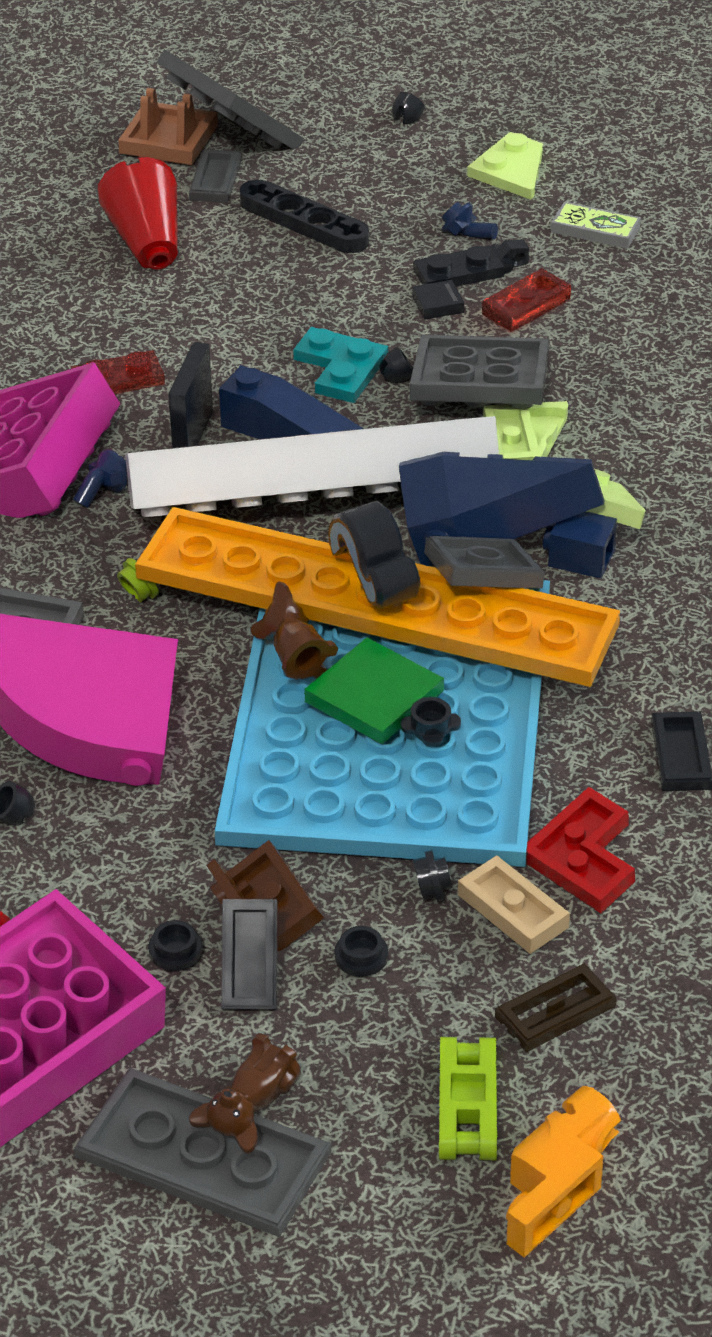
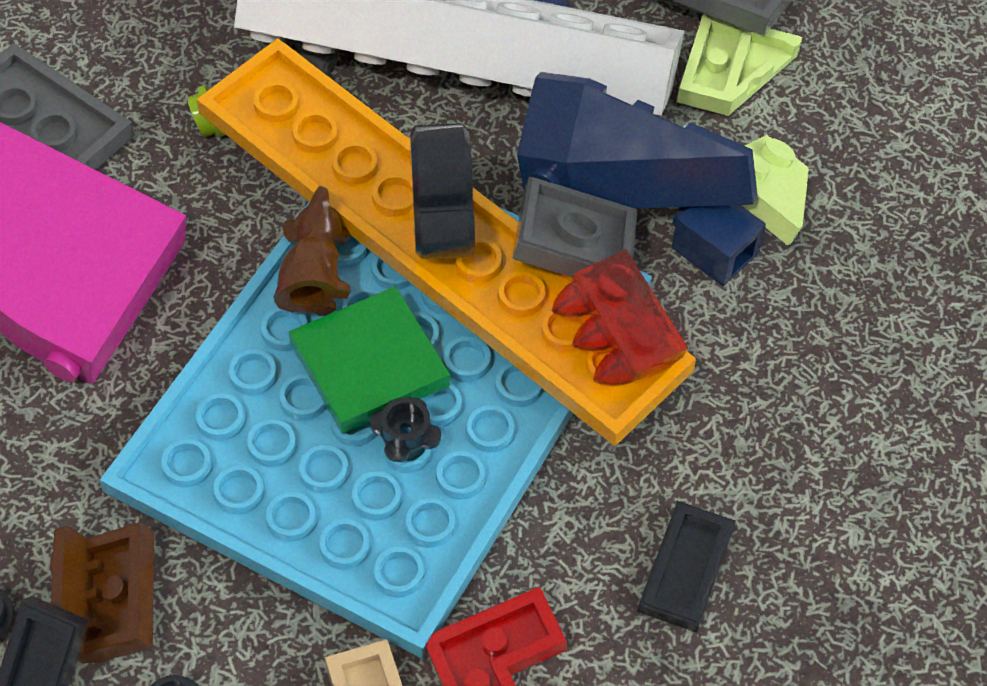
camera: 20 degrees right, 15 degrees up
(432, 876) = (302, 636): black plate -> none
(553, 597) = (622, 318): none -> clear red plate

